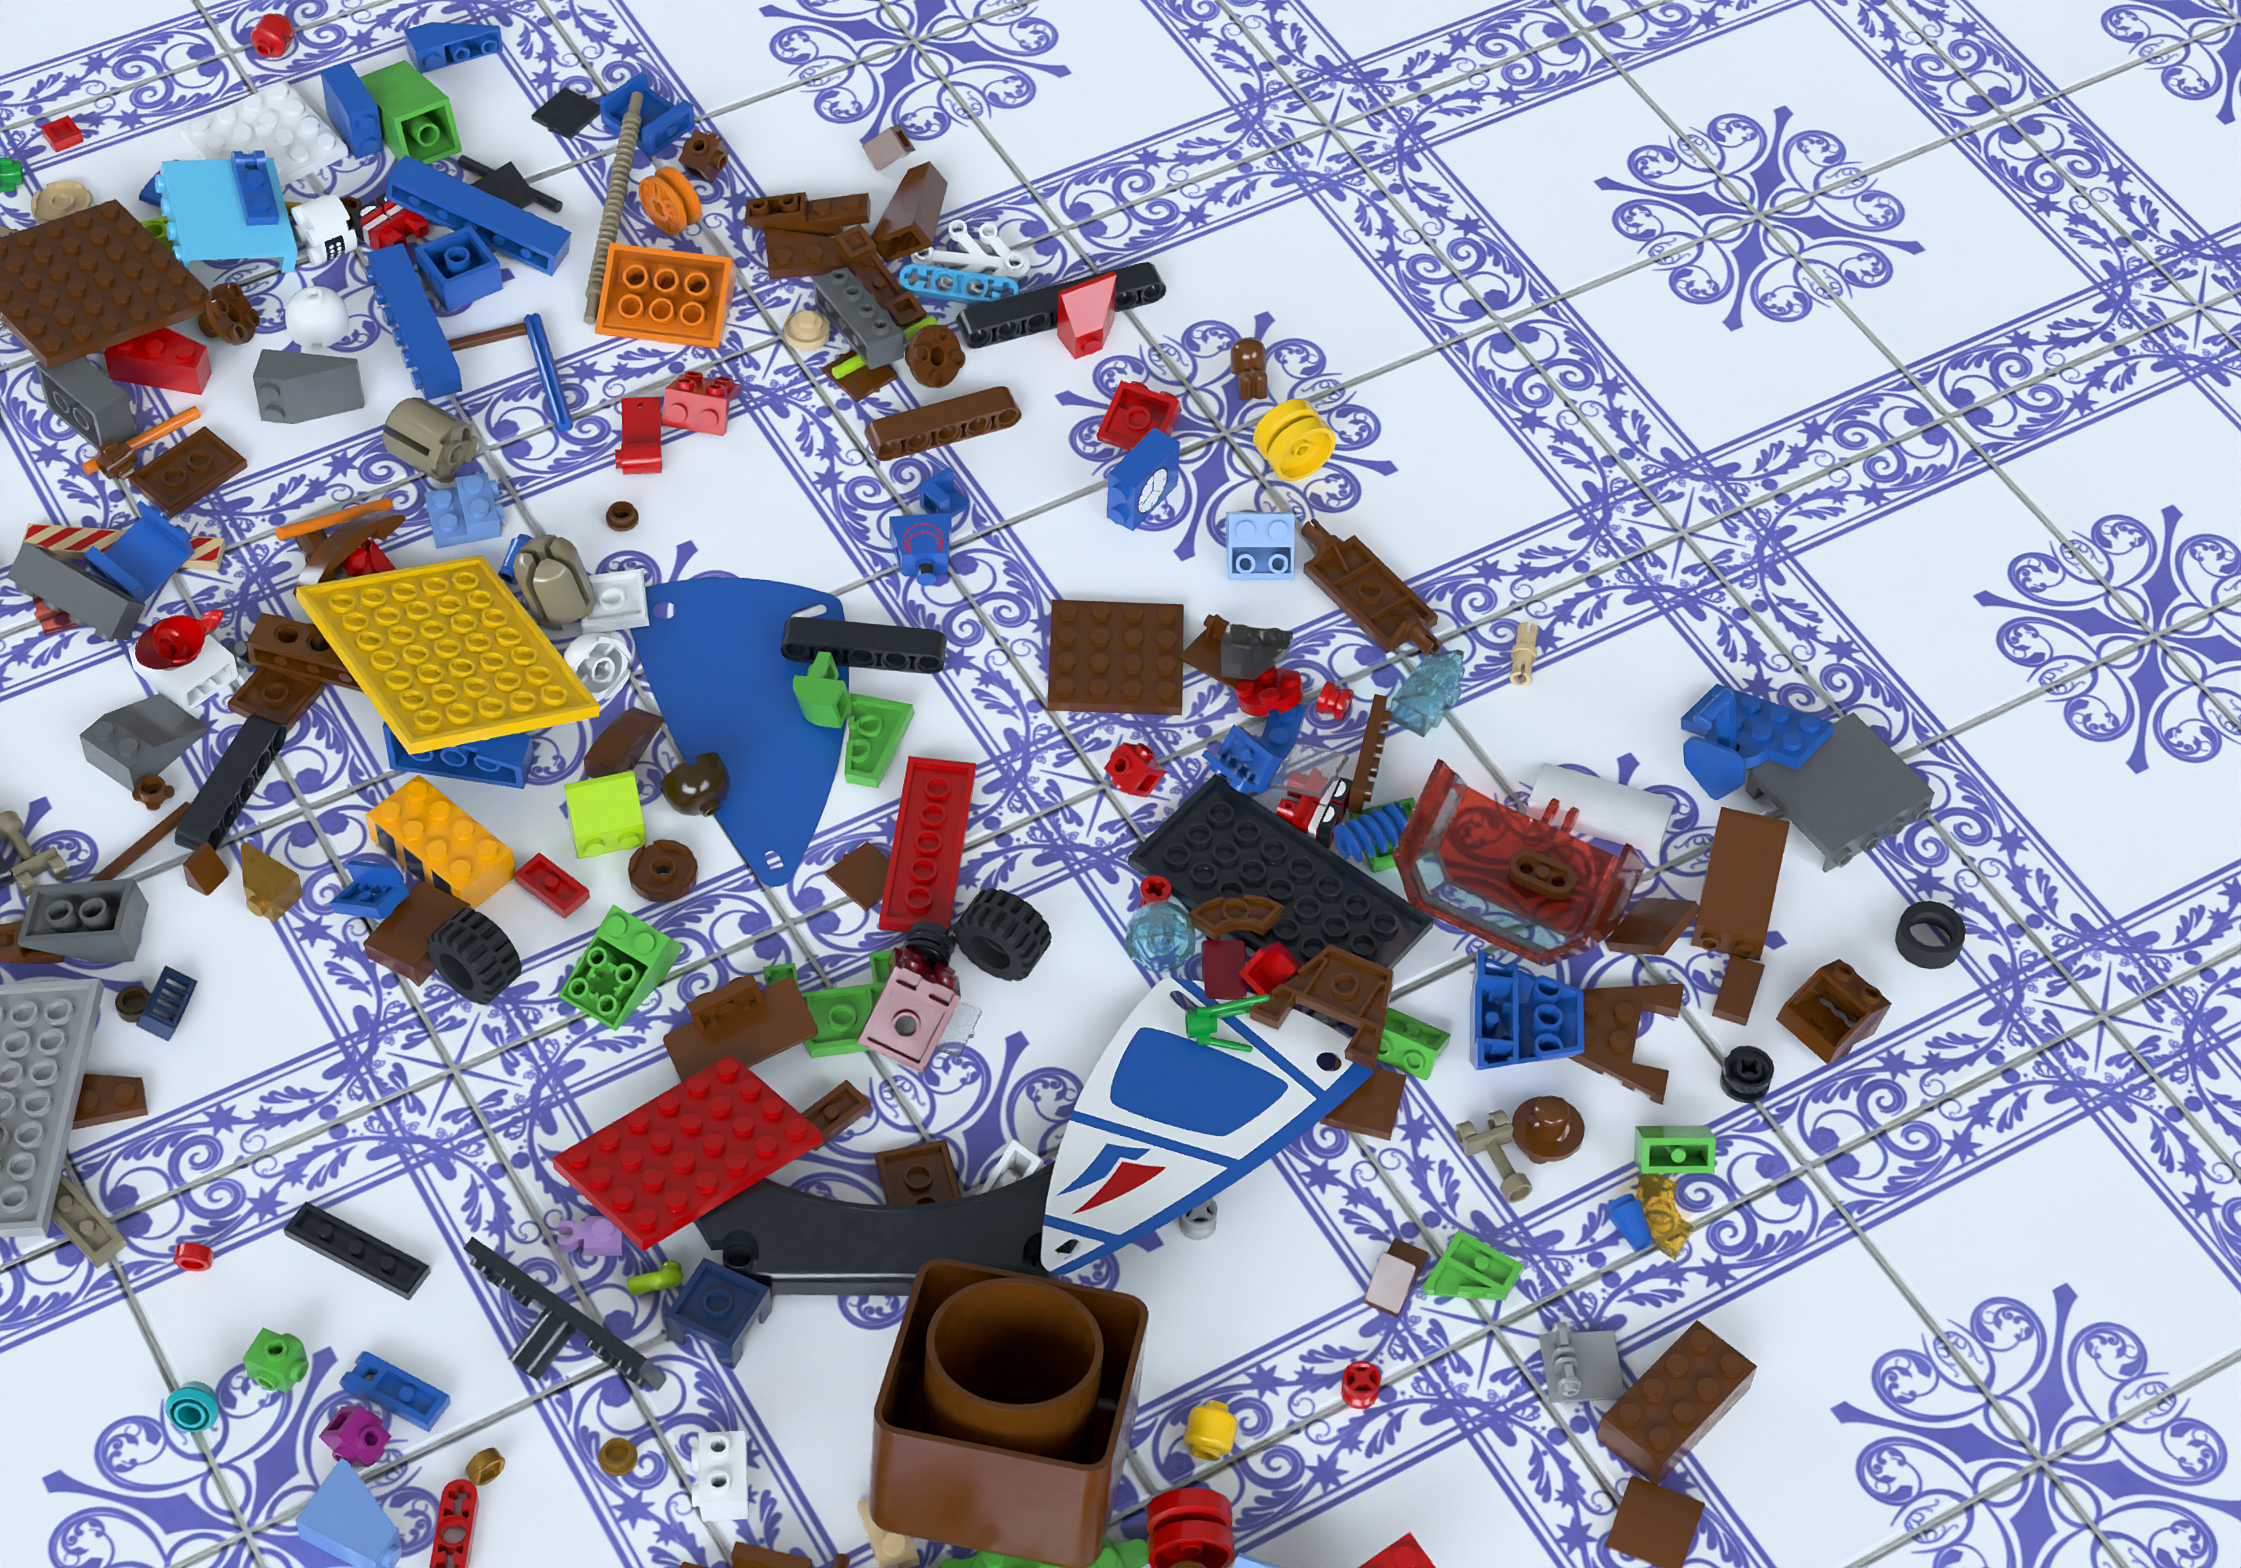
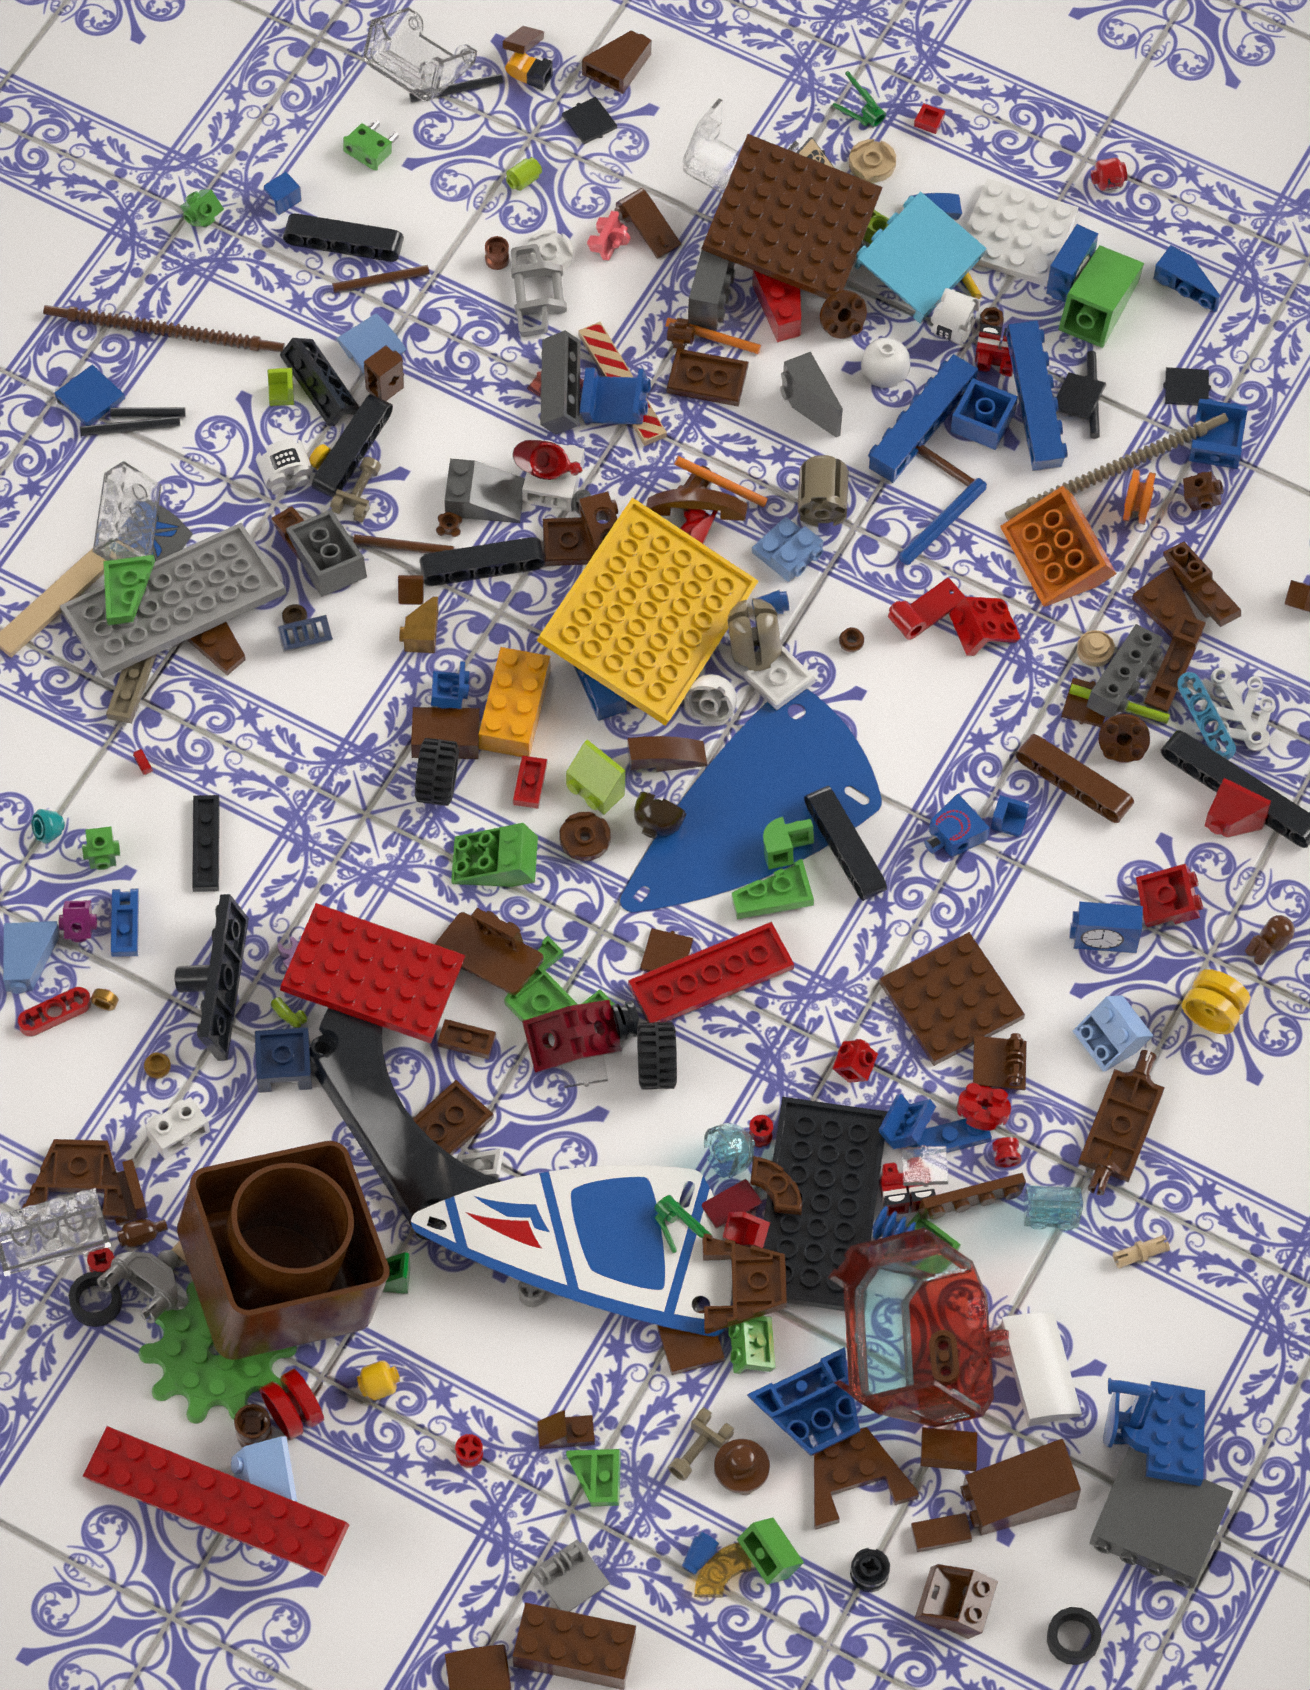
camera: 60 degrees right, 10 degrees up
(255, 188) = (947, 257): blue plate -> none
(912, 214) = (1249, 647): reddish brown slope -> none
(1252, 650) = (998, 1074): clear smoke slope -> none

